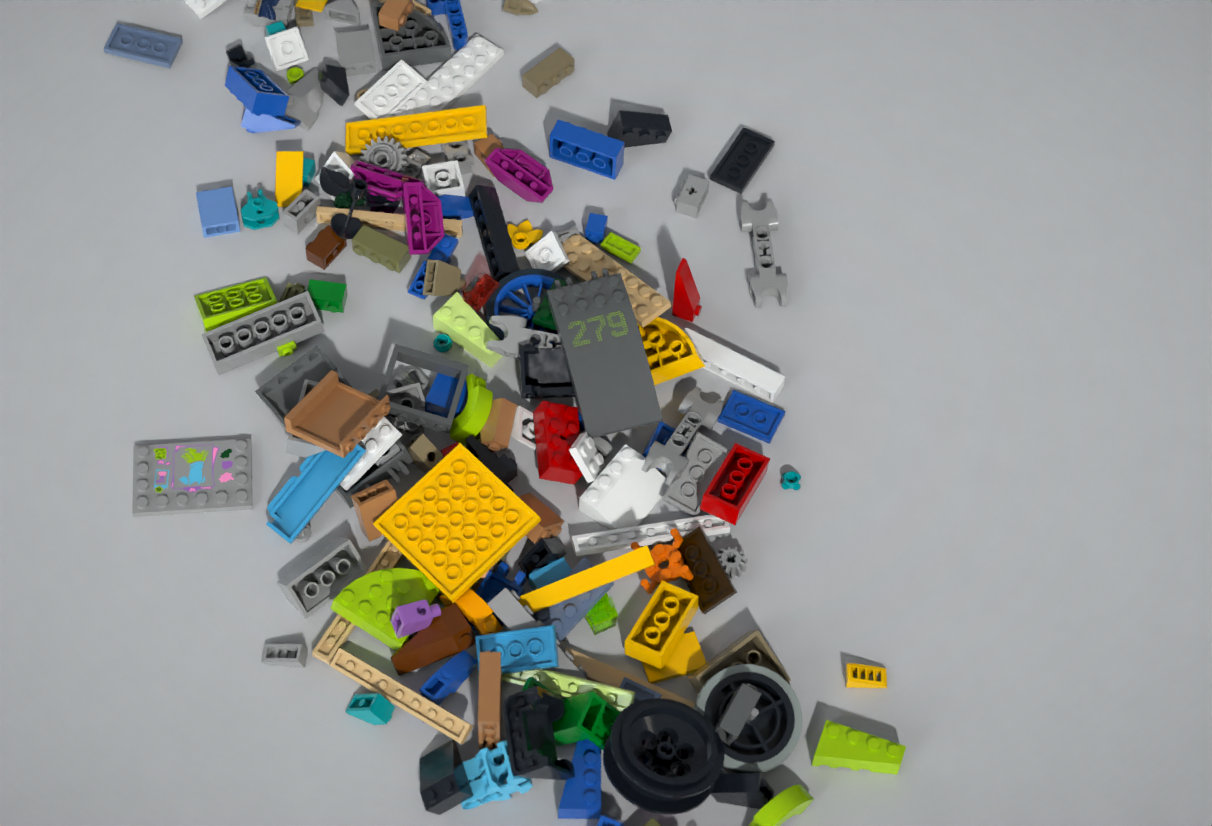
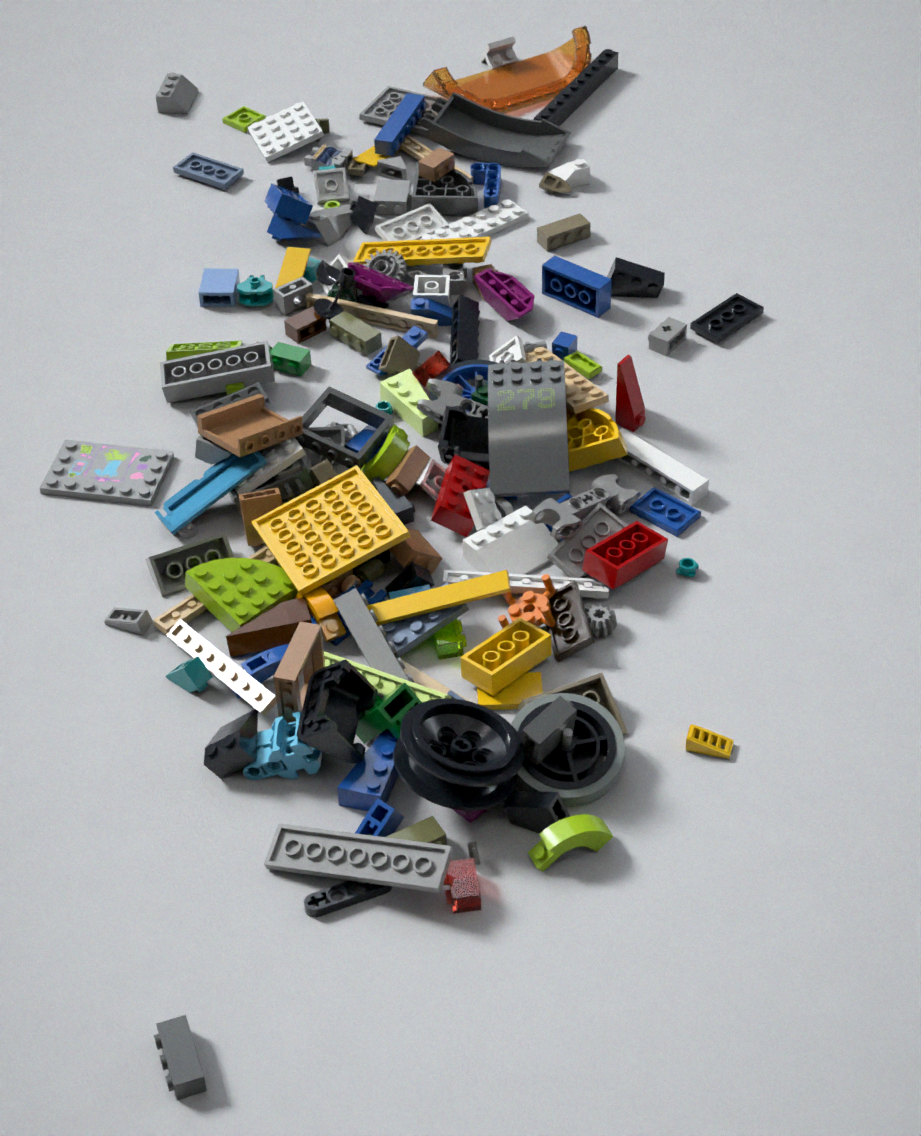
camera: 20 degrees right, 15 degrees down
(413, 617) = (255, 596): medium lavender torso -> none
(422, 218) = (398, 306): magenta wedge -> none
(522, 648) = (356, 643): dark azure tile -> none
(525, 234) = (491, 344): yellow plate -> none
(766, 280) = (719, 408): light grey piece -> none
(857, 750) = (676, 802): lime wedge -> none

